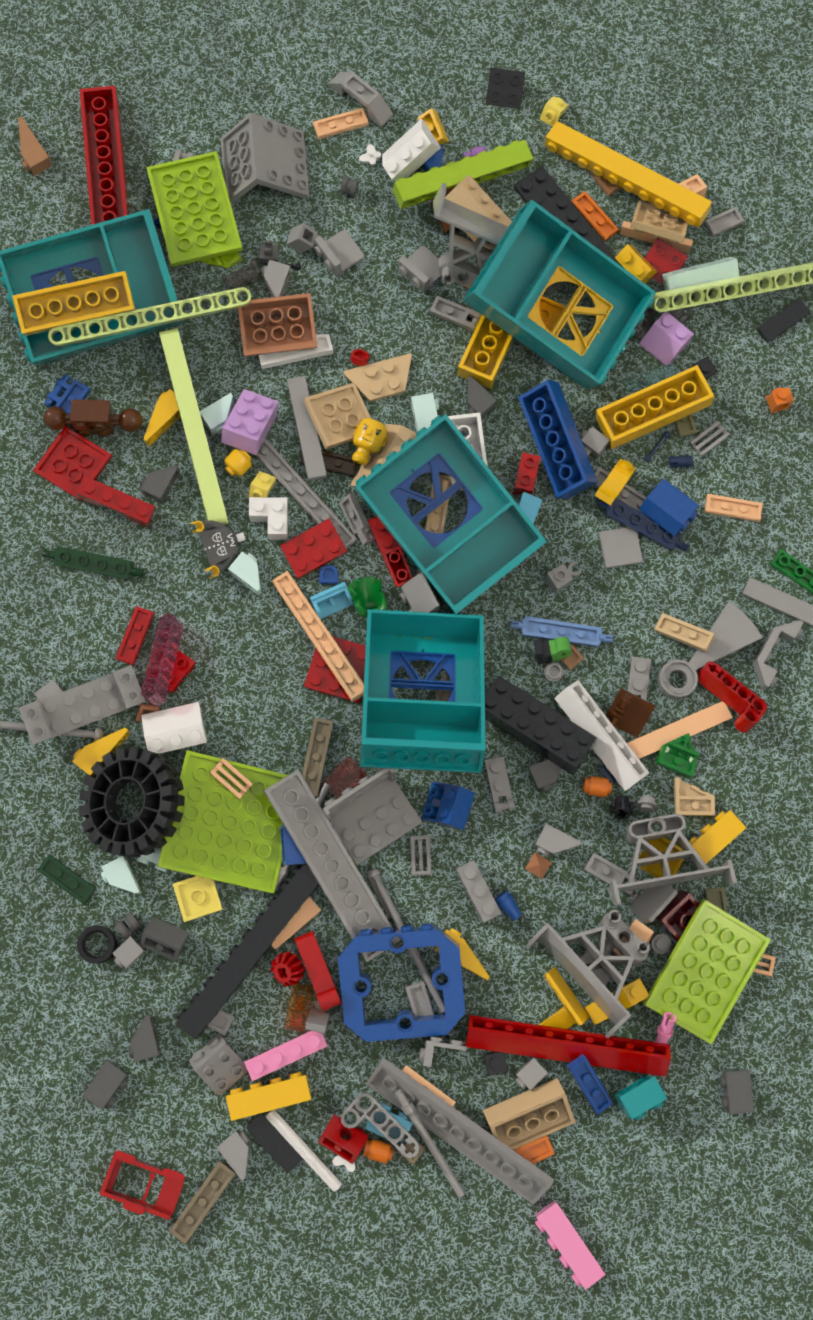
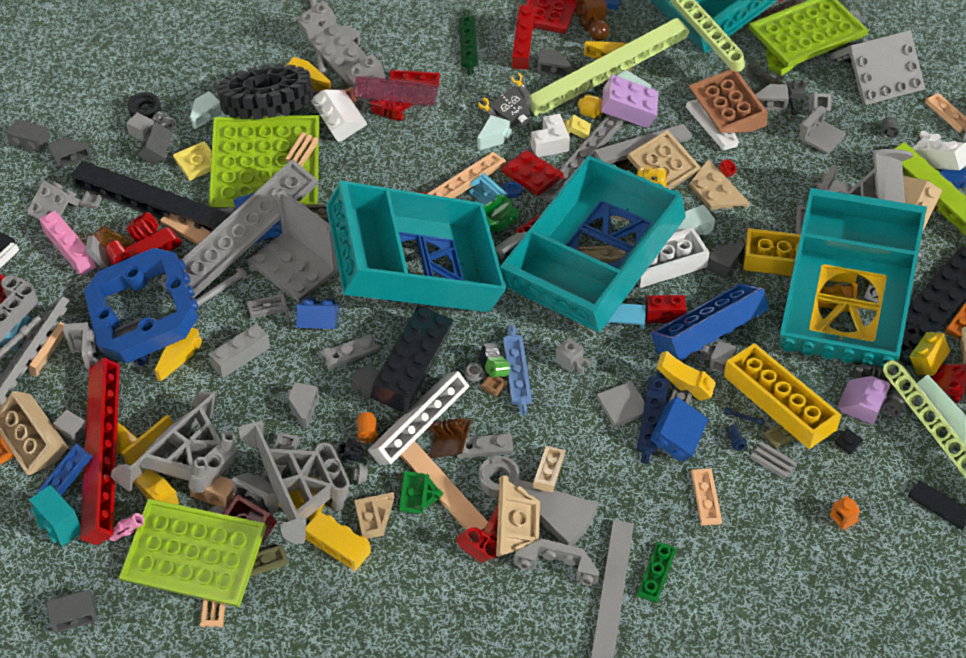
camera: 80 degrees right, 25 degrees down
(67, 879) = (196, 81): dark green tile -> none
(268, 1097) = (28, 240): yellow brick -> none
(495, 1063) = (77, 400): black plate -> none
(508, 905) = (233, 377): blue cone -> none
(538, 865) = (276, 399): nougat slope -> none
(737, 675) = (516, 518): none -> tan wing

